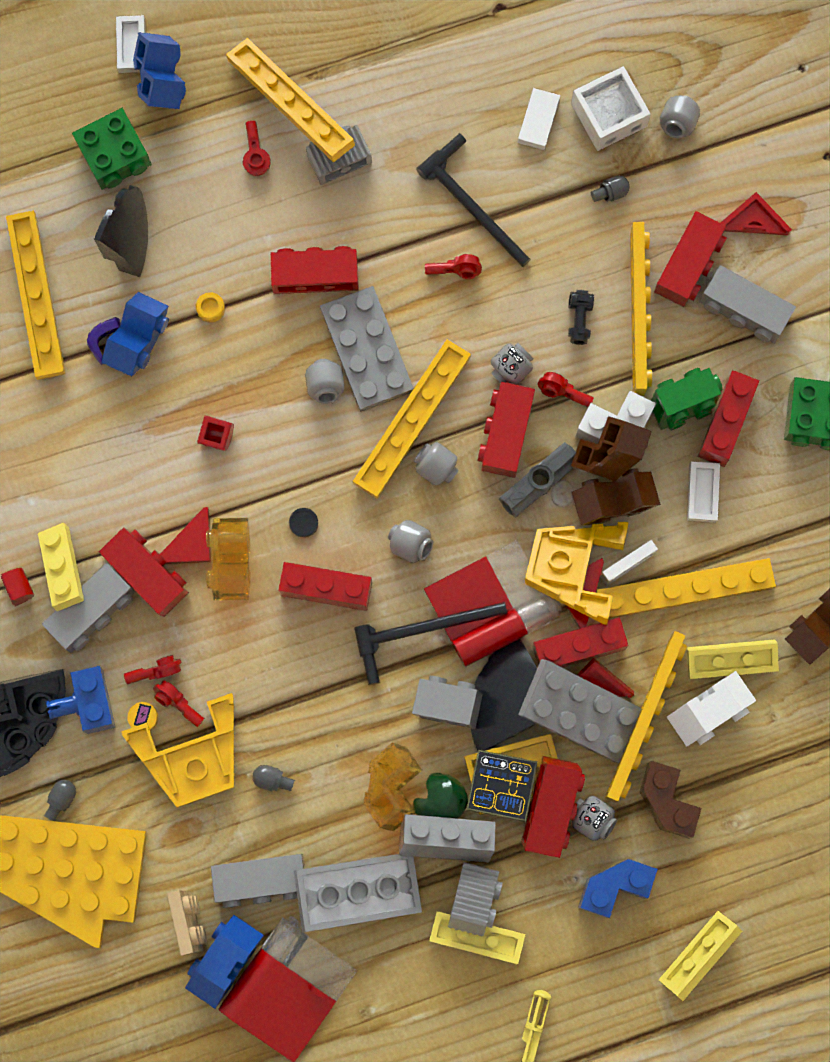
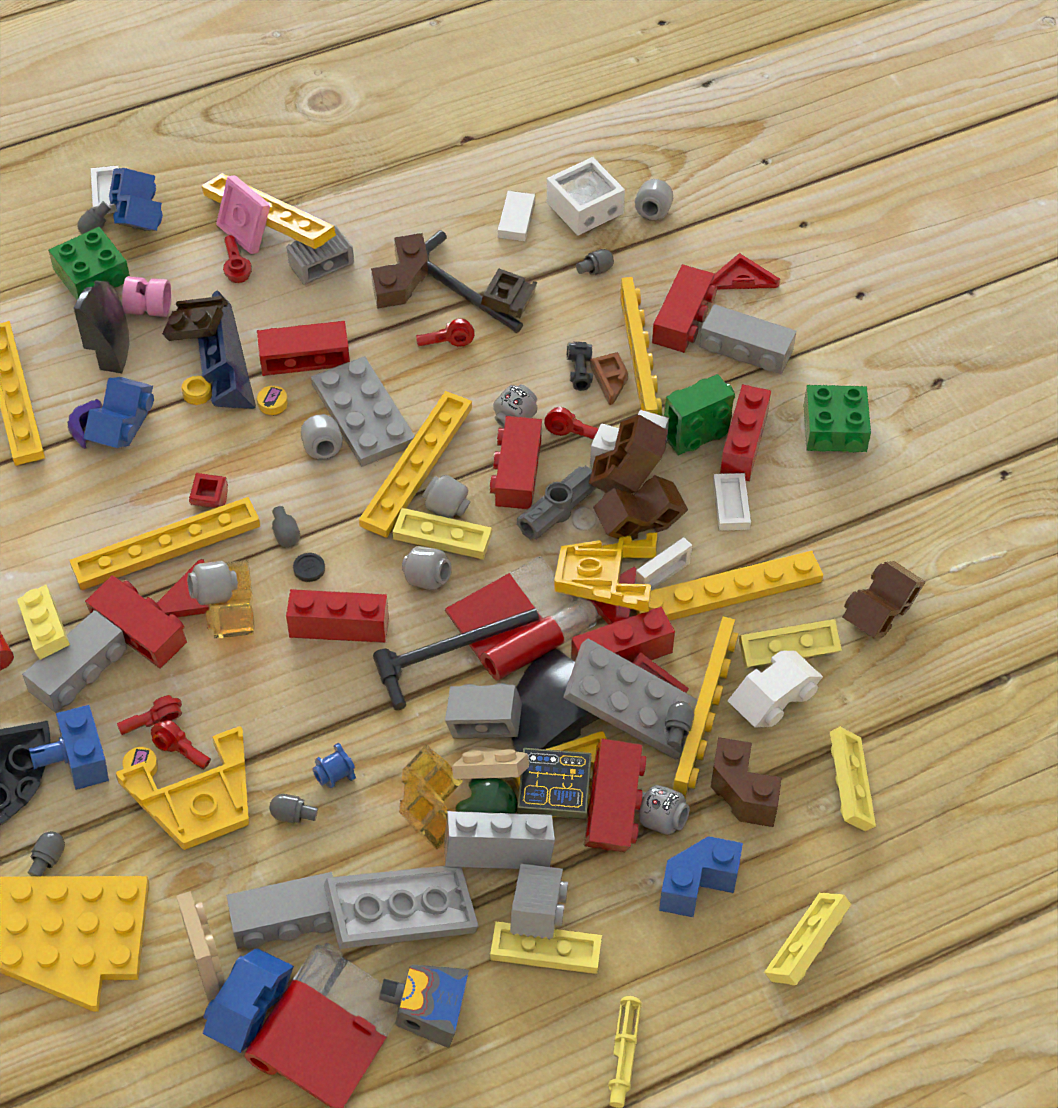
camera: 10 degrees left, 25 degrees down
(117, 86) = (93, 218): none -> dark grey cylinder
(173, 486) = (164, 543): none -> yellow plate
(176, 193) = (146, 296): none -> bright pink wheel
(212, 226) = (195, 318): none -> dark brown plate
(213, 552) = (212, 583): none -> light grey head
(237, 269) = (225, 364): none -> dark blue wedge
(265, 102) = (243, 214): none -> bright pink tile
(281, 327) = (272, 400): none -> yellow tile
(284, 479) = (285, 528): none -> dark grey cylinder
(310, 743) = (334, 767): none -> blue brick
(373, 979) = (428, 1001): none -> torso
(412, 203) = (396, 282): none -> reddish brown brick
(428, 502) = (442, 533): none -> light yellow plate
(447, 764) = (490, 763): none -> tan wing
(520, 224) = (508, 293): none -> dark brown plate
(608, 330) = (610, 375): none -> dark orange tile
(619, 740) = (679, 722): none -> dark grey cylinder
(765, 805) = (852, 779): none -> light yellow plate

